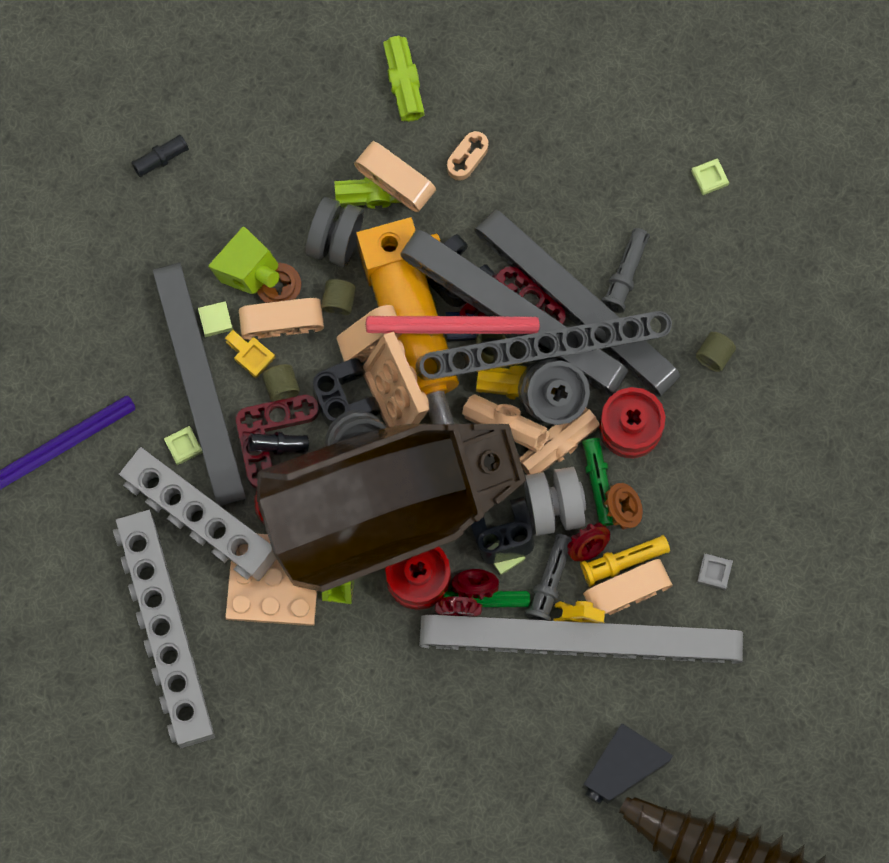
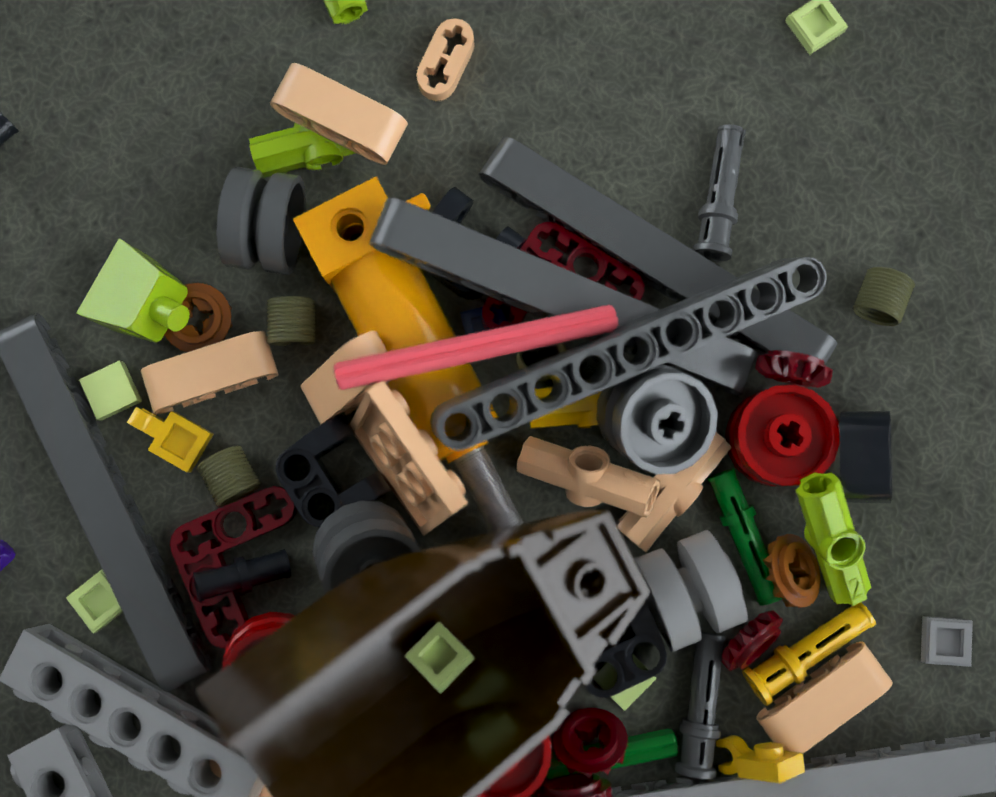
camera: 10 degrees left, 10 degrees up
(393, 505) = (439, 657): none -> yellowish green plate
(644, 378) = (794, 368): none -> dark red gear
(647, 470) = (834, 538): none -> lime piece
(679, 442) = (866, 456): none -> black piece

